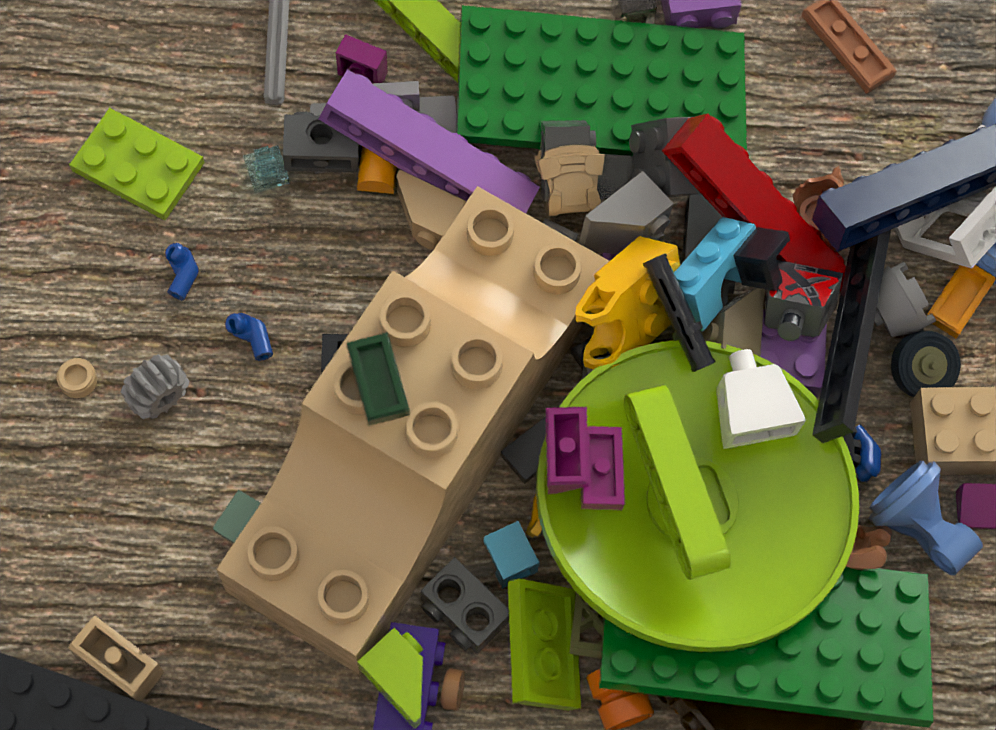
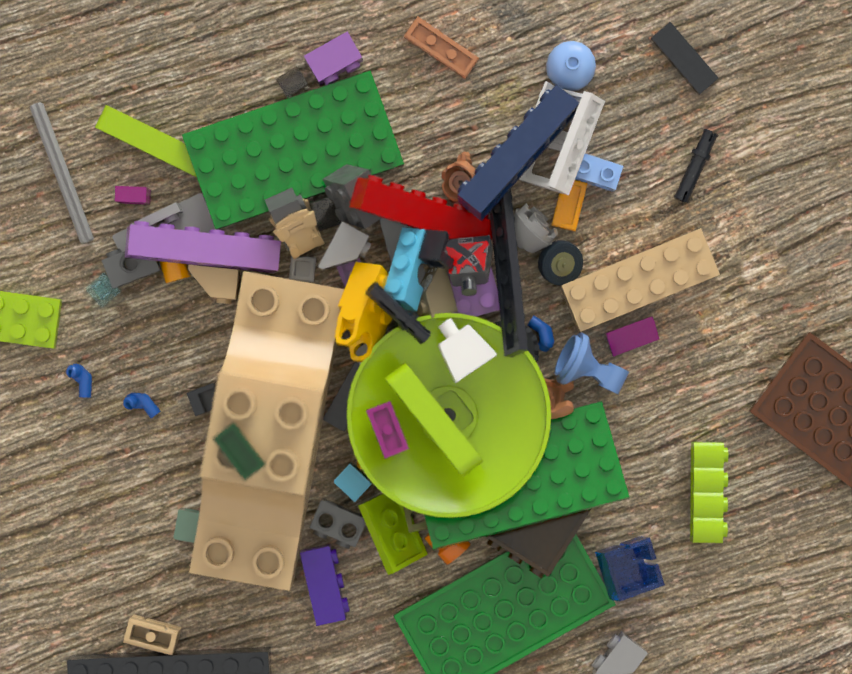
camera: 10 degrees left, 20 degrees up
(77, 378) = (49, 472): tan tile -> none
(154, 386) = (100, 464): light grey gear -> none
(397, 673) = (316, 585): lime slope -> none
(452, 689) = (350, 573): medium nougat tile -> none
(567, 449) = (362, 428): magenta slope -> none

